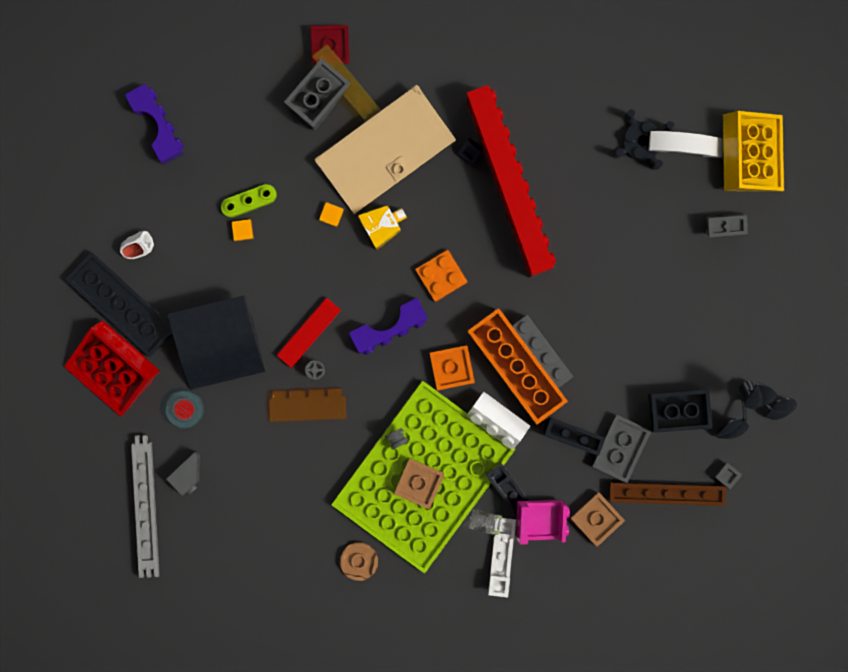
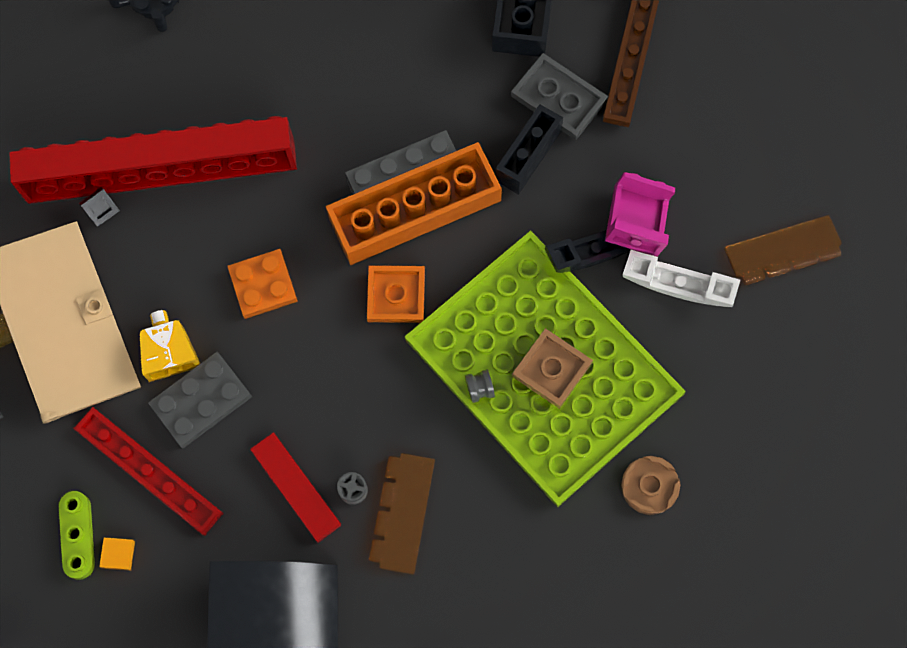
camera: 75 degrees left, 15 degrees down
(299, 234) = (148, 471): none -> red tile
(331, 214) = (132, 418): light orange tile -> none
(353, 255) = (200, 400): none -> dark grey plate
(367, 338) = (323, 401): dark purple arch -> none
(485, 522) = (630, 281): clear brick -> none
(498, 420) = (485, 244): white brick -> none
(545, 626) = (780, 247): none -> clear orange windscreen
(597, 519) = (650, 145): medium nougat plate -> none

